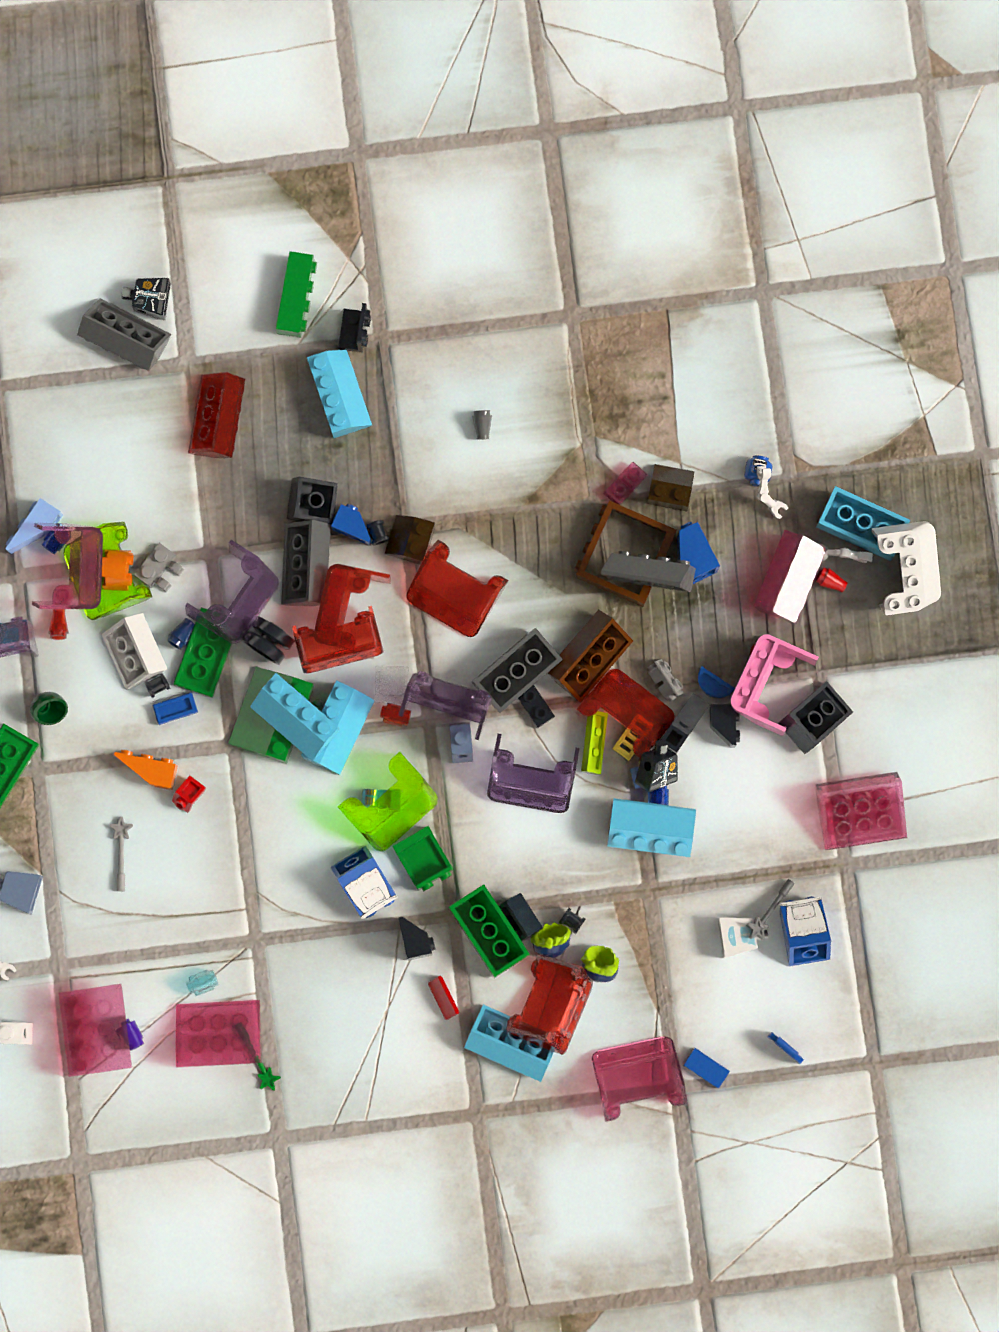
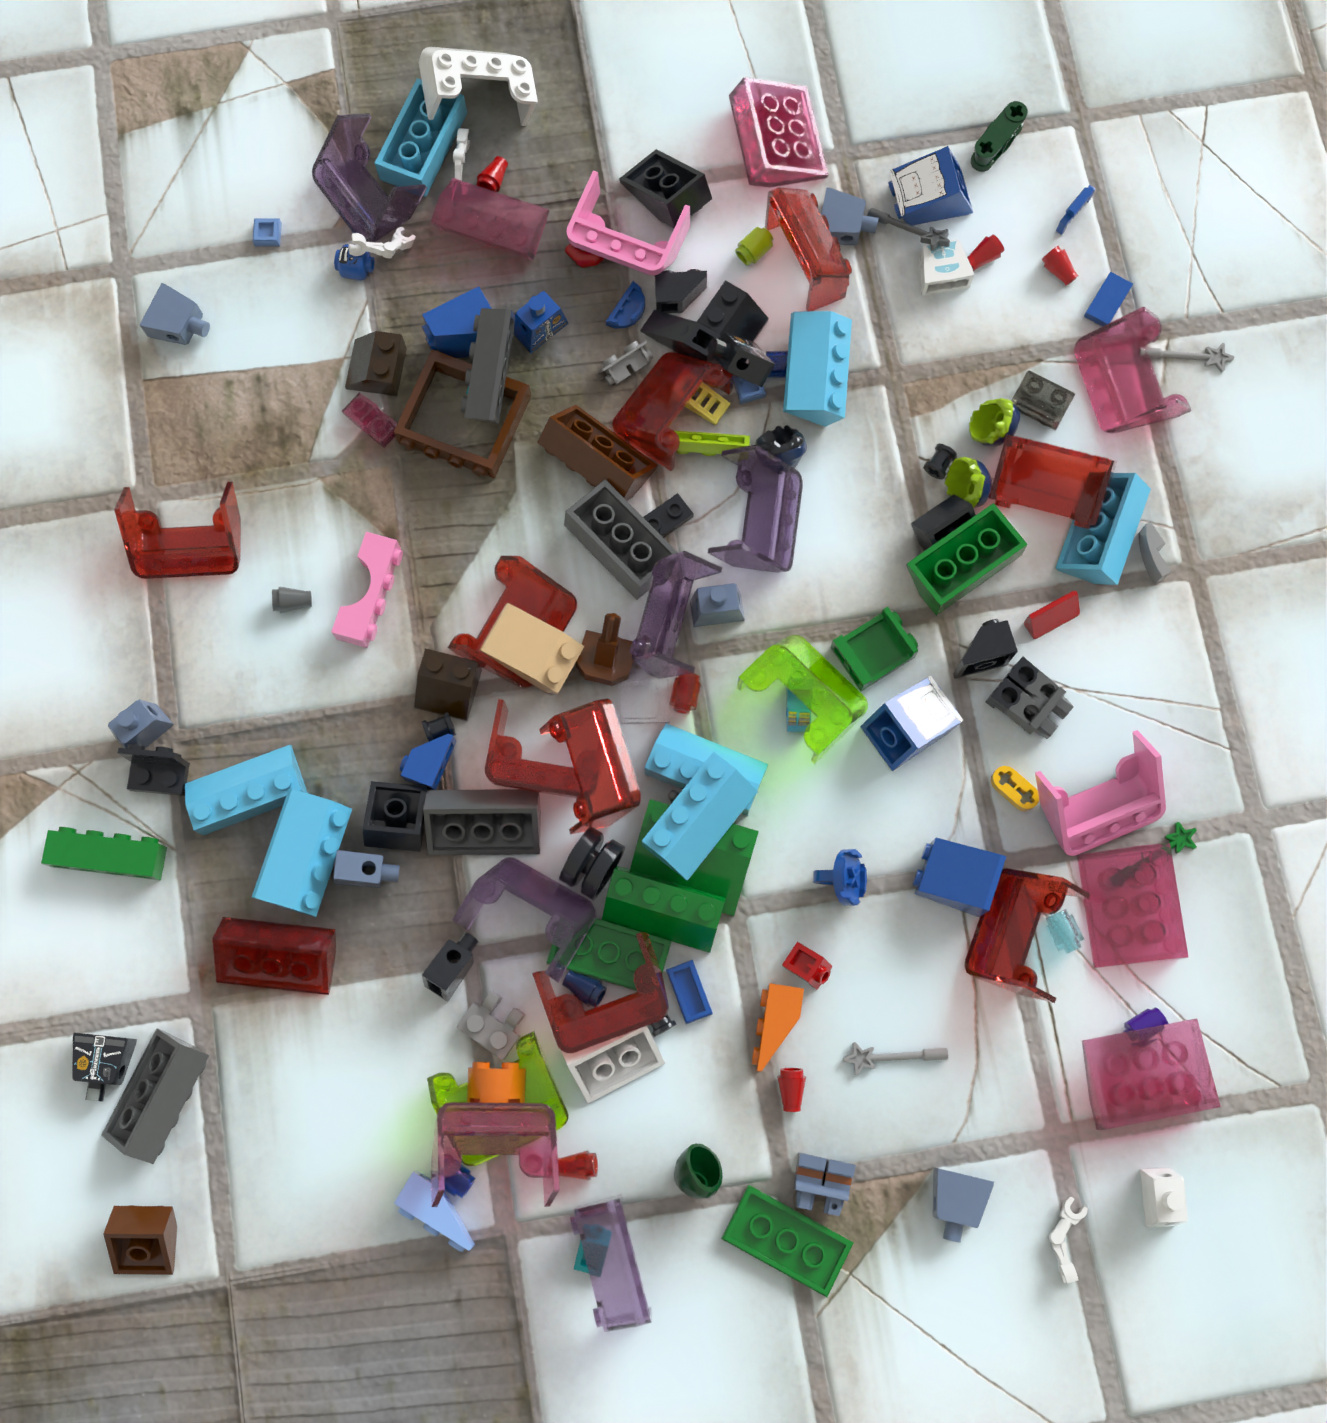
camera: 90 degrees left, 5 degrees down
(27, 328) = (141, 1239): none -> reddish brown slope
(37, 786) = (835, 1182): none -> sand blue hips
(102, 777) = (791, 1087): none -> red cone
(151, 630) = (579, 1029): none -> clear red windscreen
(194, 532) = (445, 977): none -> black torso
(204, 941) = (1009, 926): none -> clear red windscreen
(235, 691) = (663, 908): none -> green slope
(246, 906) = (959, 876): none -> blue slope
(248, 824) = (847, 877): none -> blue tile
(271, 468) = (350, 868): none -> sand blue torso
(287, 434) = (302, 852): none -> medium azure slope
(291, 1021) = (1109, 808): none -> bright pink windscreen
(308, 953) = (1010, 793): none -> yellow beam
(372, 976) = (1029, 697): none -> dark grey hips
(388, 316) = (139, 724): none -> sand blue torso
(426, 655) = (605, 655): none -> reddish brown piece
(431, 601) = (532, 649): none -> tan slope
(495, 1078) = (1150, 545): none -> light grey slope
(511, 489) = (358, 621): none -> bright pink arch
(526, 343) = (180, 550): none -> clear red windscreen
(587, 796) = (784, 443): none -> black hair
(618, 1003) = (1042, 399): none -> clear smoke bracket
(654, 1149) = (1214, 357): none -> light grey piece
(697, 764) = (734, 313): none -> black slope
(700, 614) = (538, 321): none -> blue torso
(715, 333) = (173, 317): none -> sand blue torso
(736, 1031) = (1060, 265): none -> red cone
(751, 973) = (986, 252): none -> red cone
(752, 824) = (811, 242): none -> clear red windscreen
(761, 786) = (754, 245): none -> lime brick
(782, 858) = (846, 216): none -> sand blue torso
(789, 402) = (267, 232): none -> medium blue tile
(821, 472) = (350, 187): none -> clear purple windscreen
(853, 990) = (999, 136): none -> dark green piece

